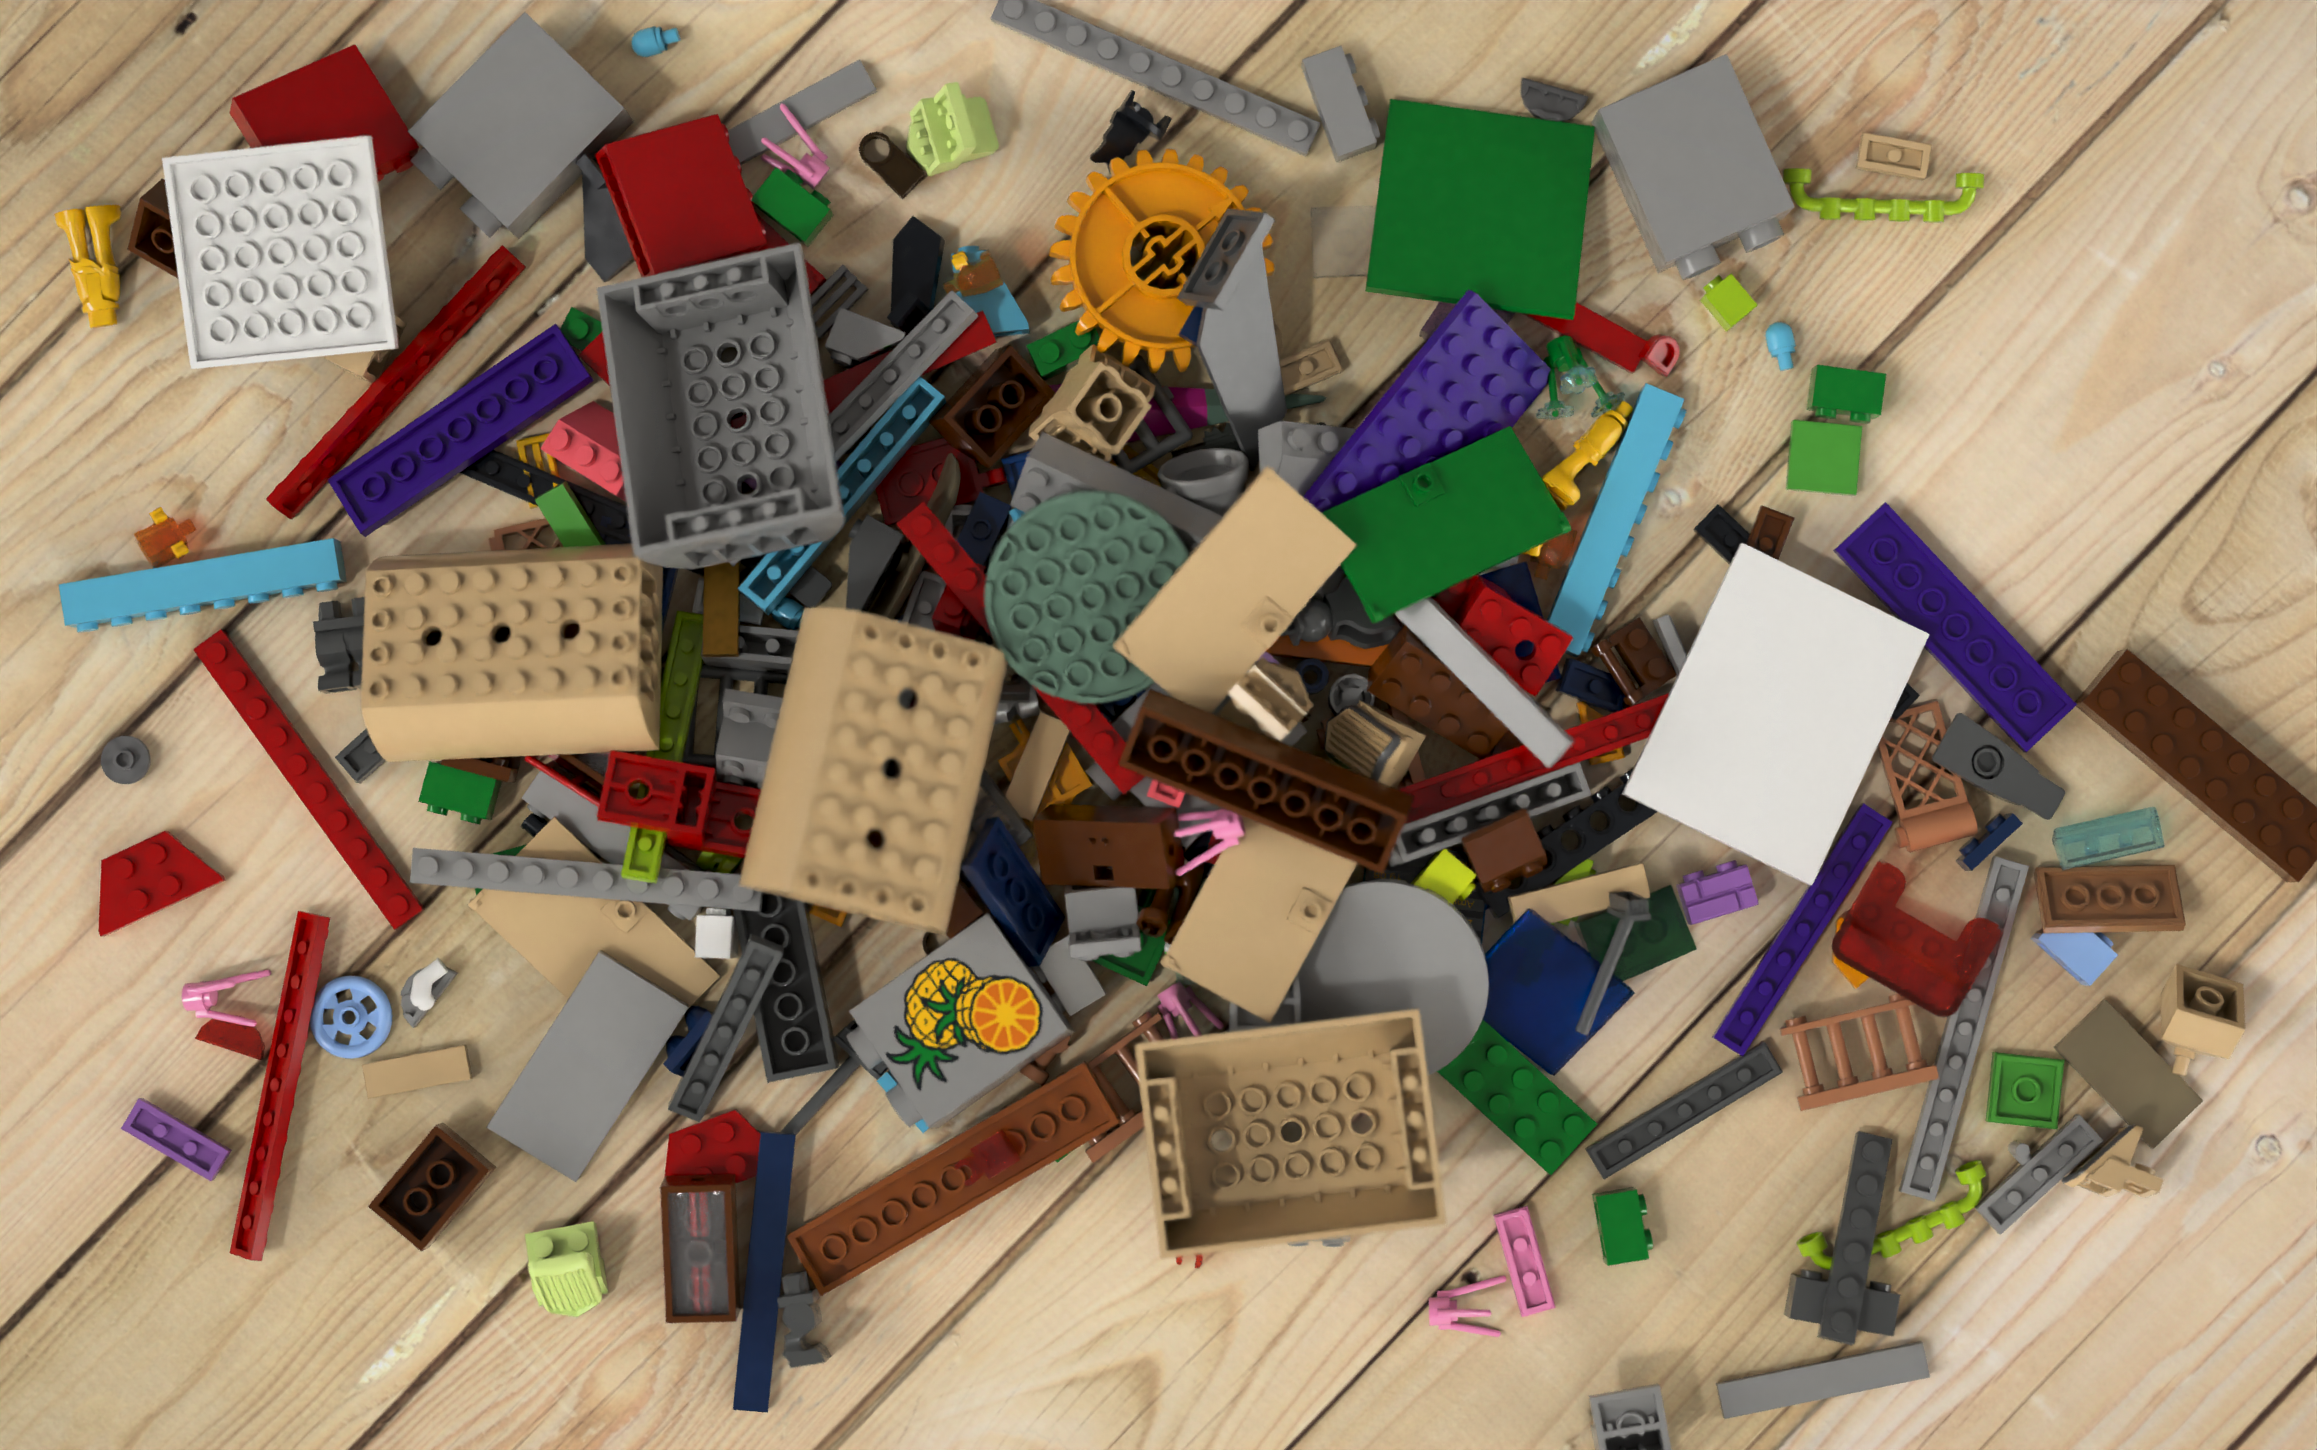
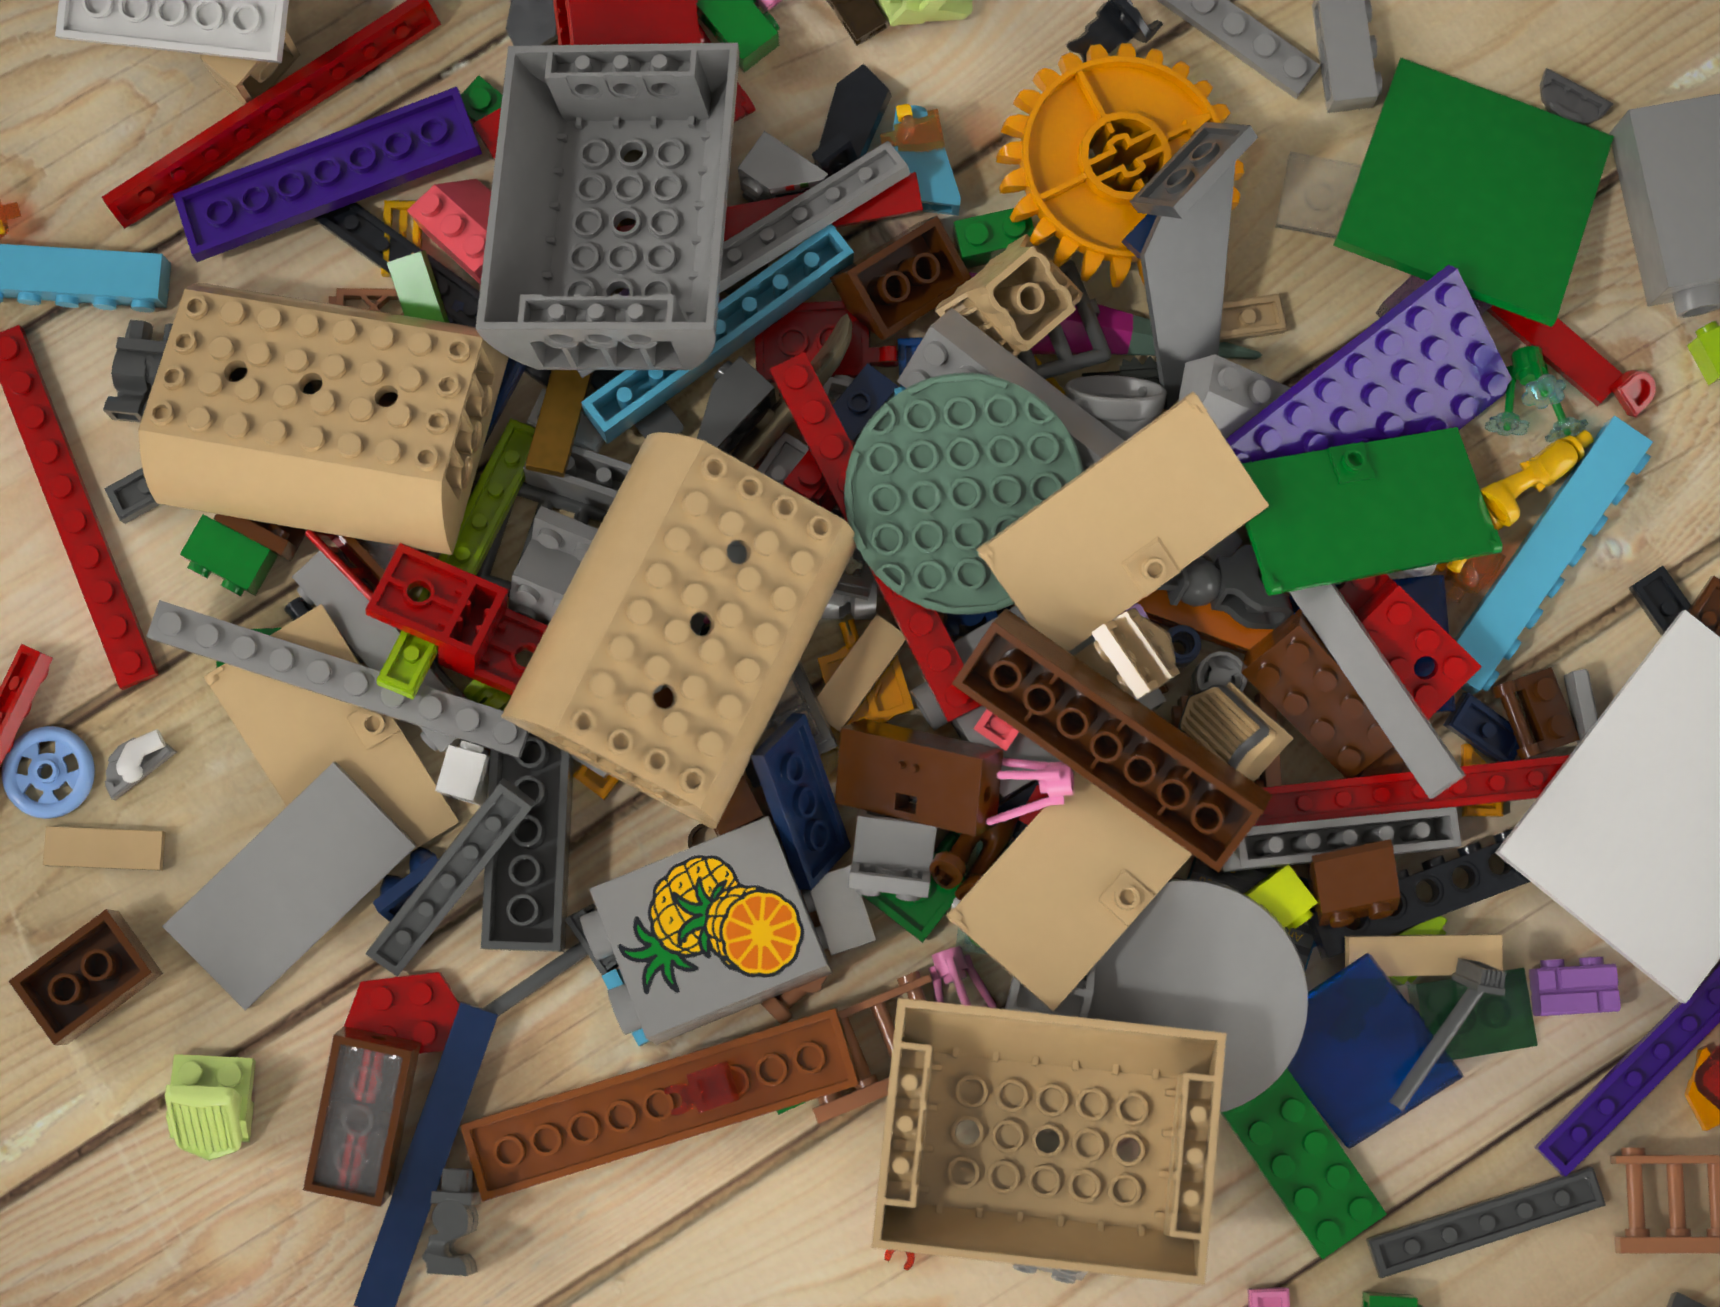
camera: 10 degrees right, 5 degrees down
(788, 613) = (626, 446): medium azure cylinder -> none
(826, 287) = (755, 116): flat silver tile -> none

